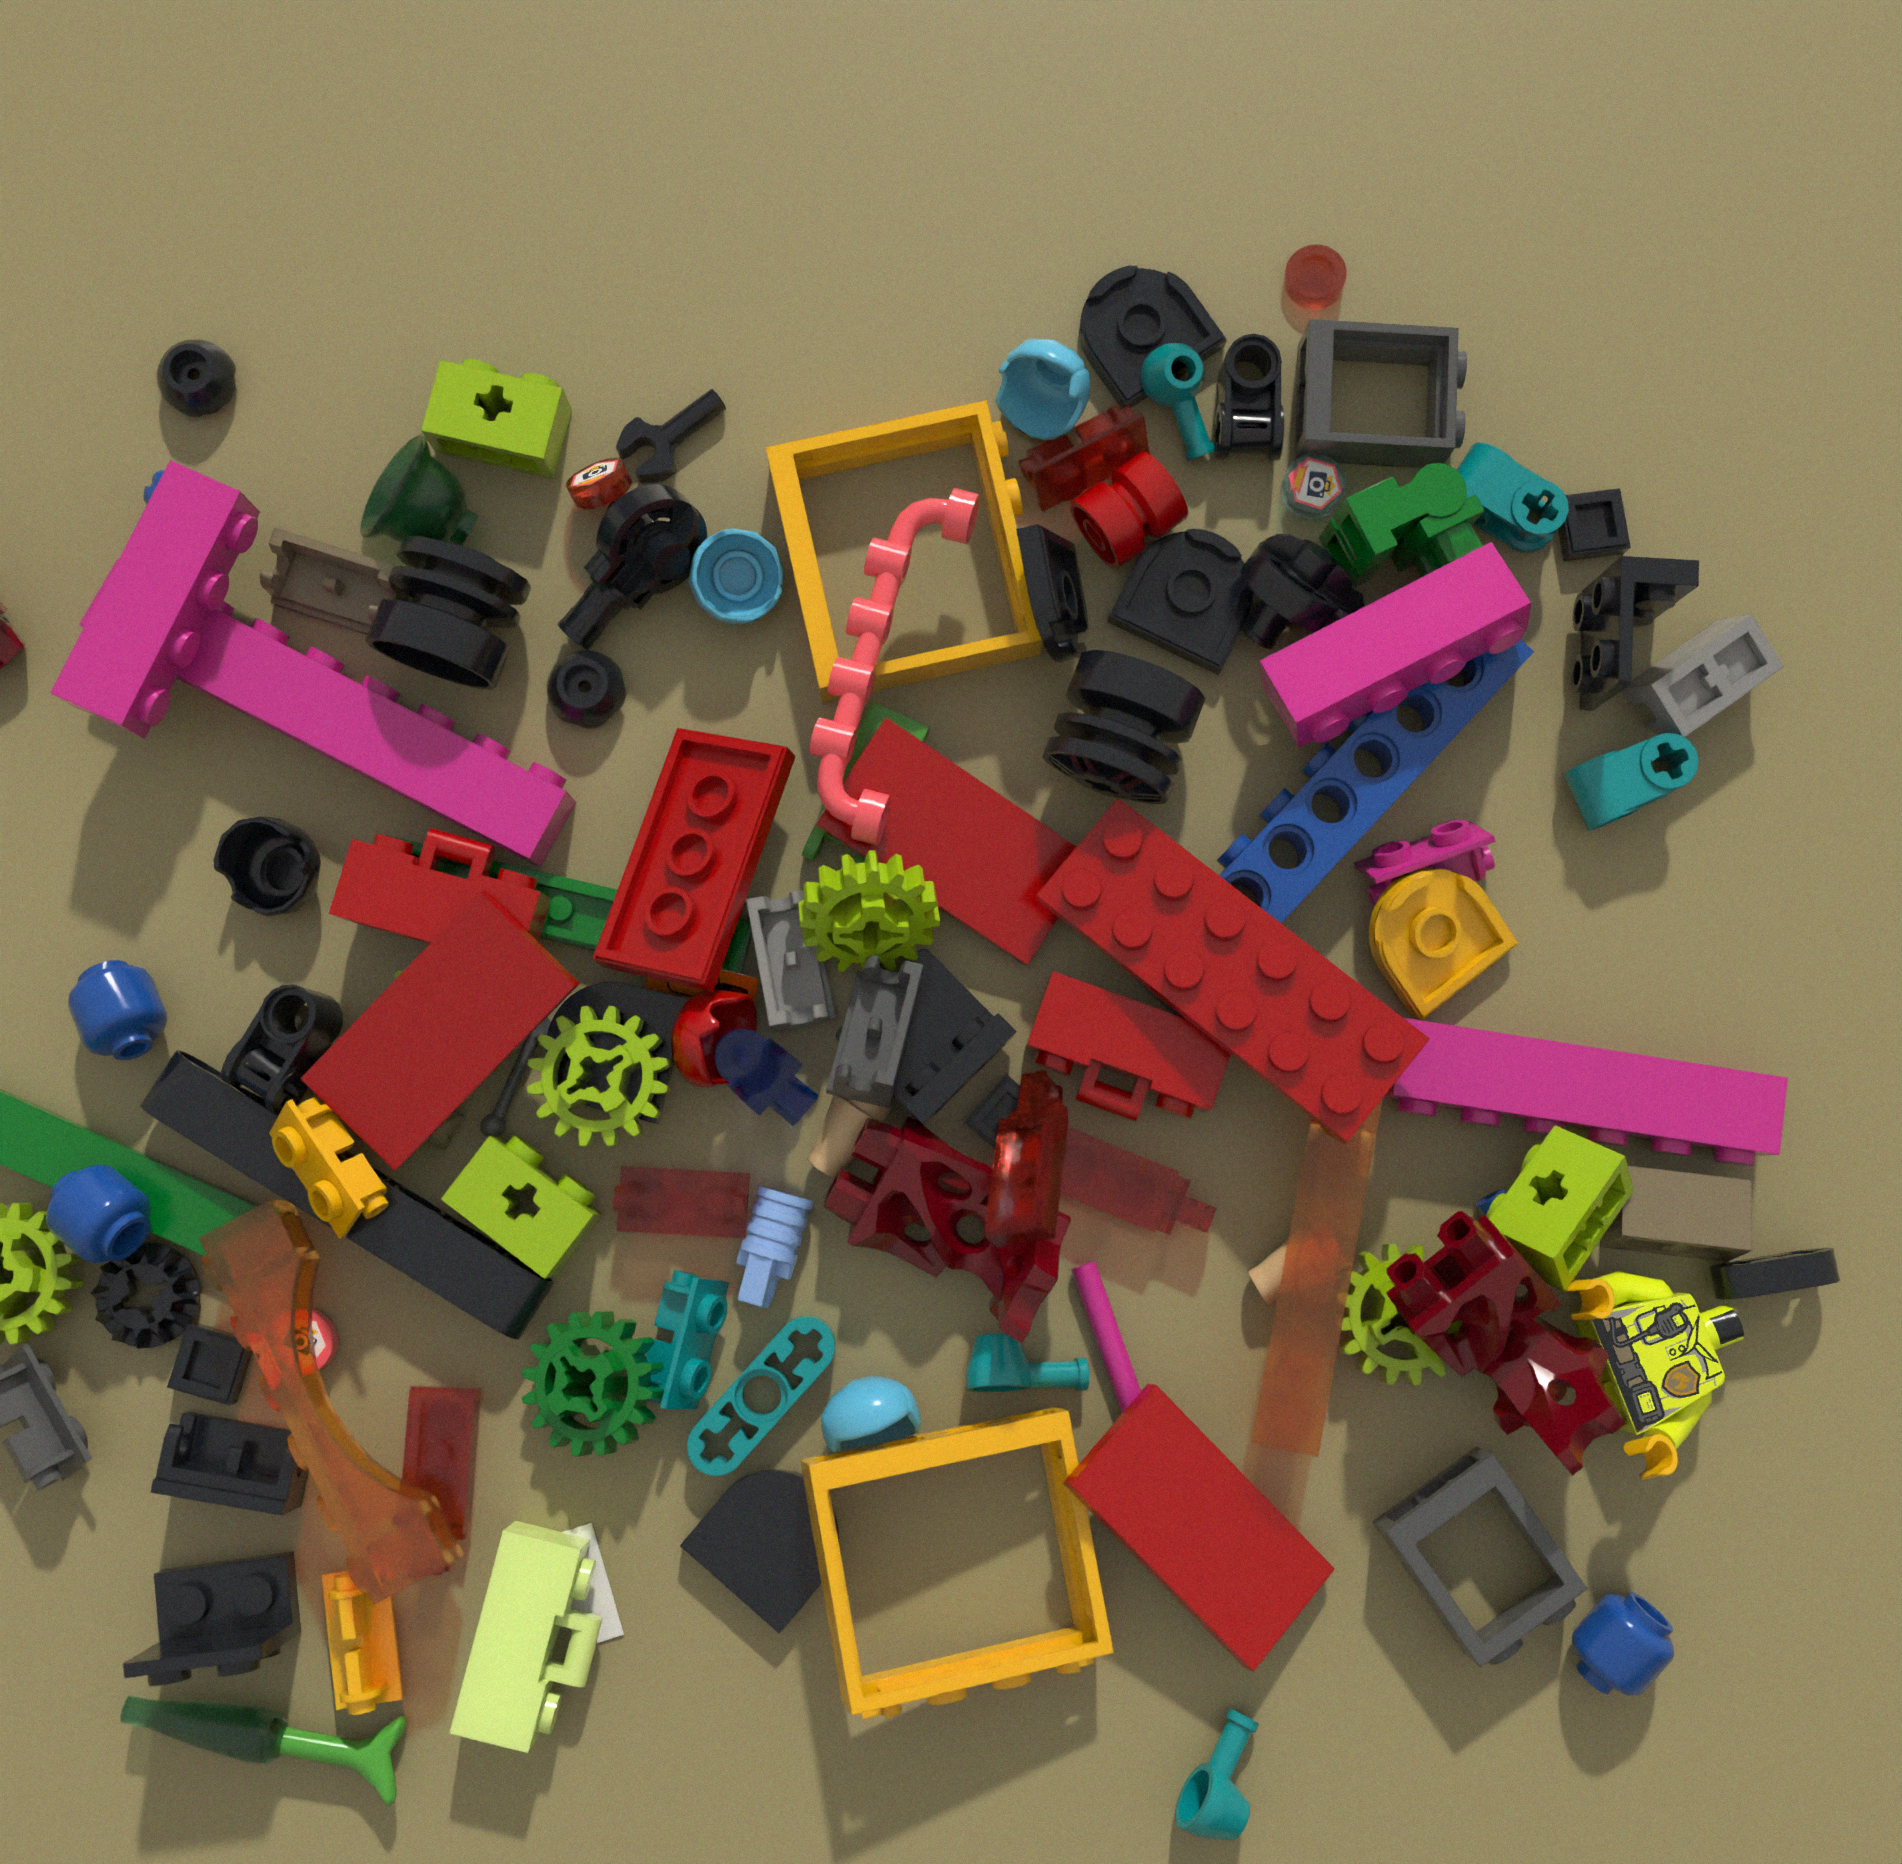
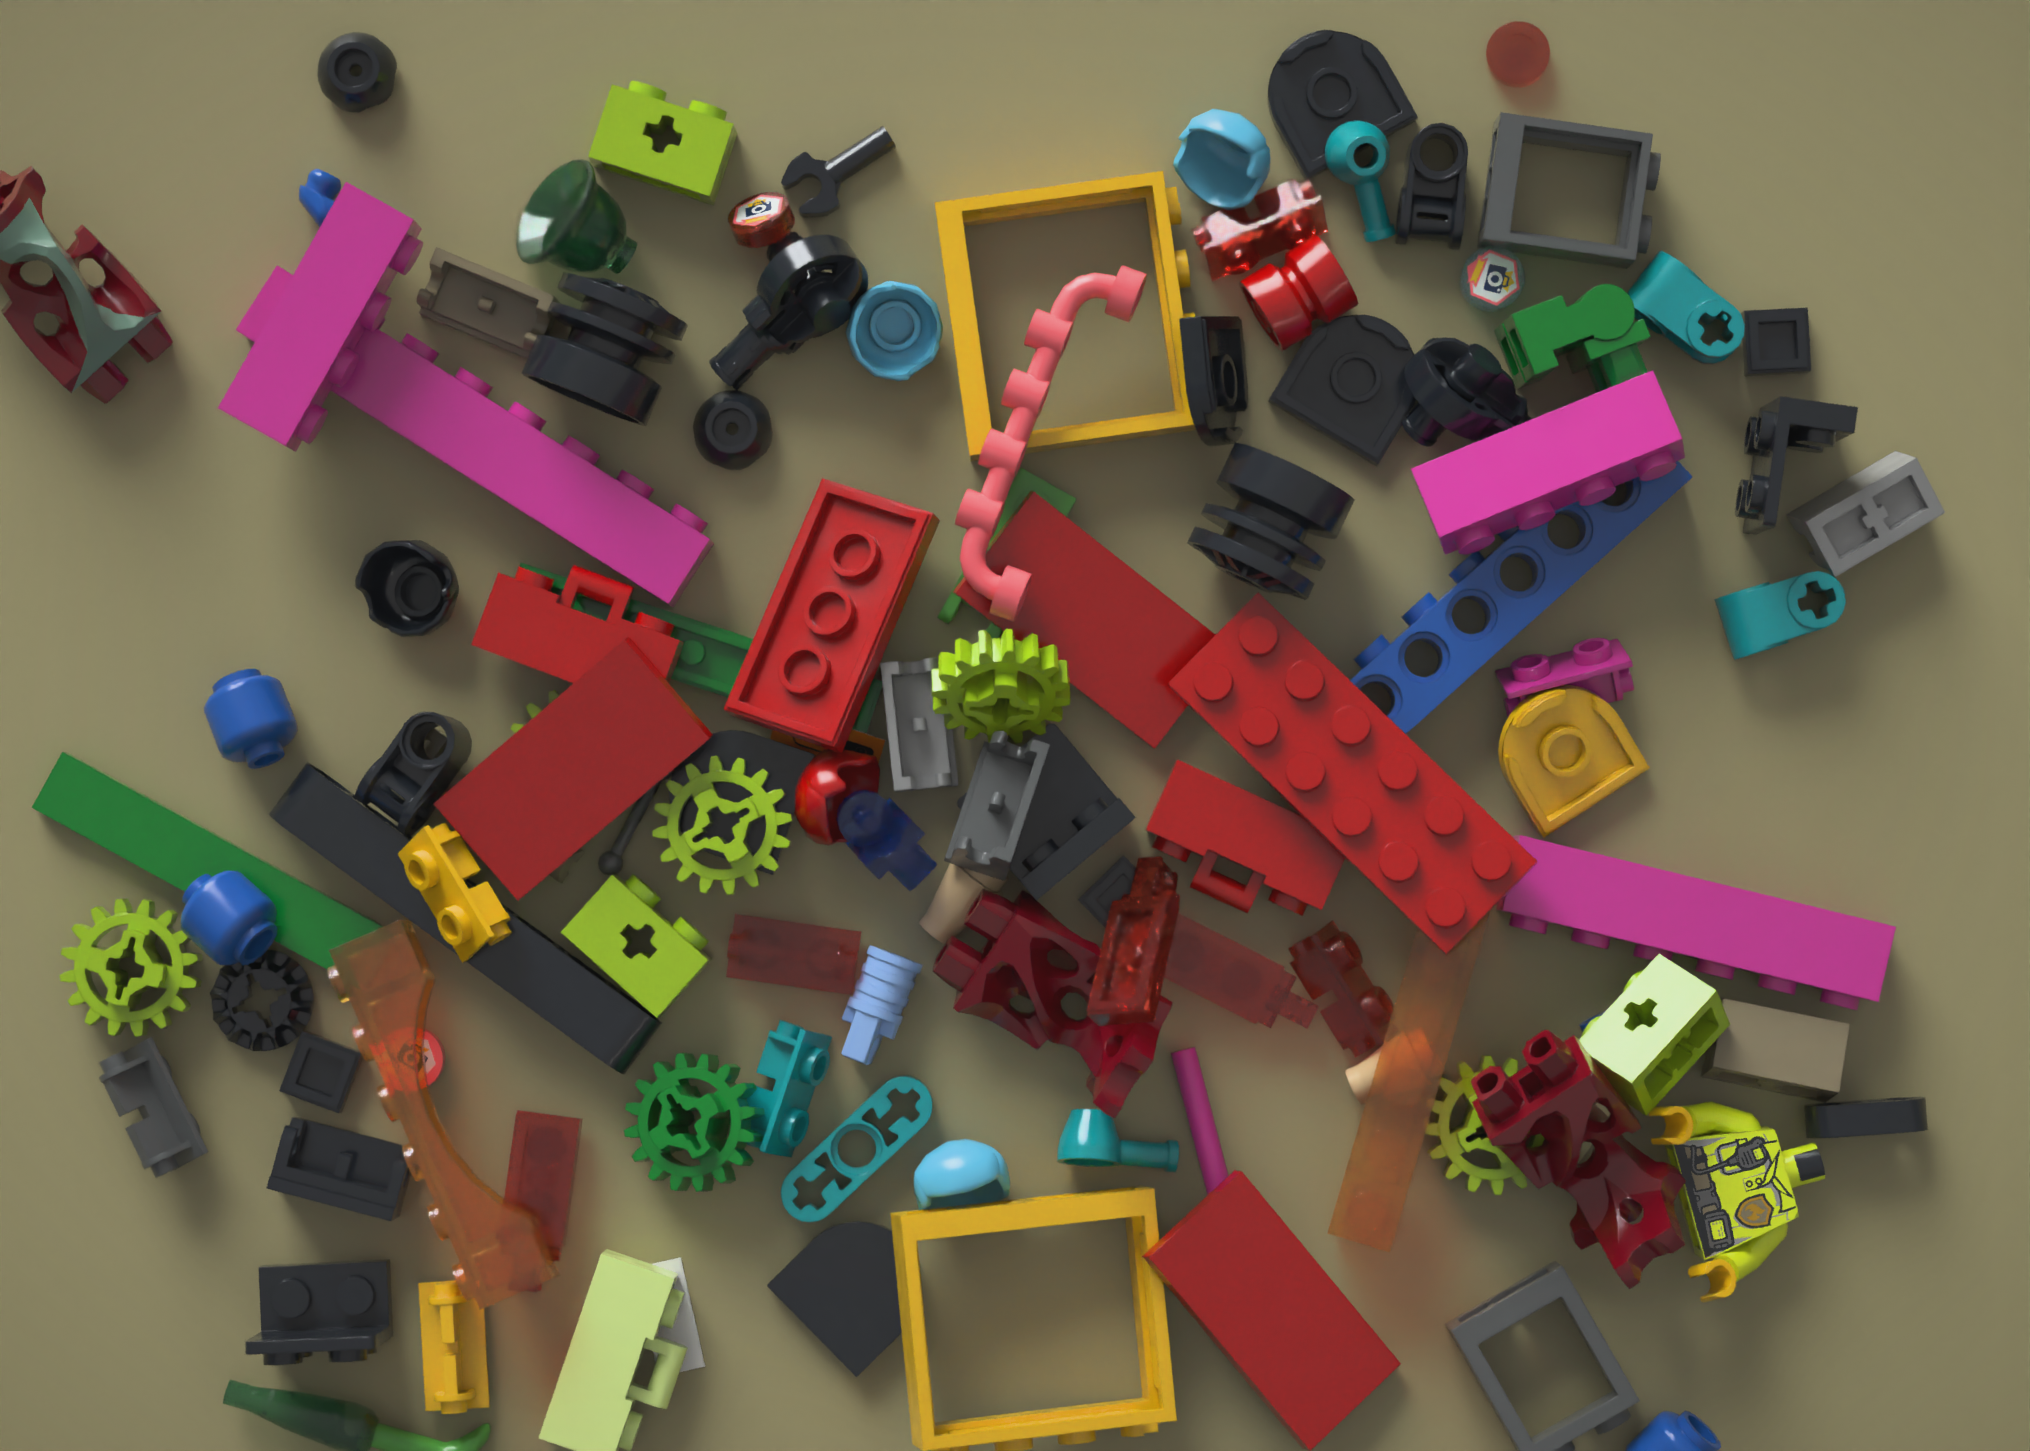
camera: 10 degrees right, 5 degrees up
(1228, 1167) = (1334, 963): none -> clear red hinge

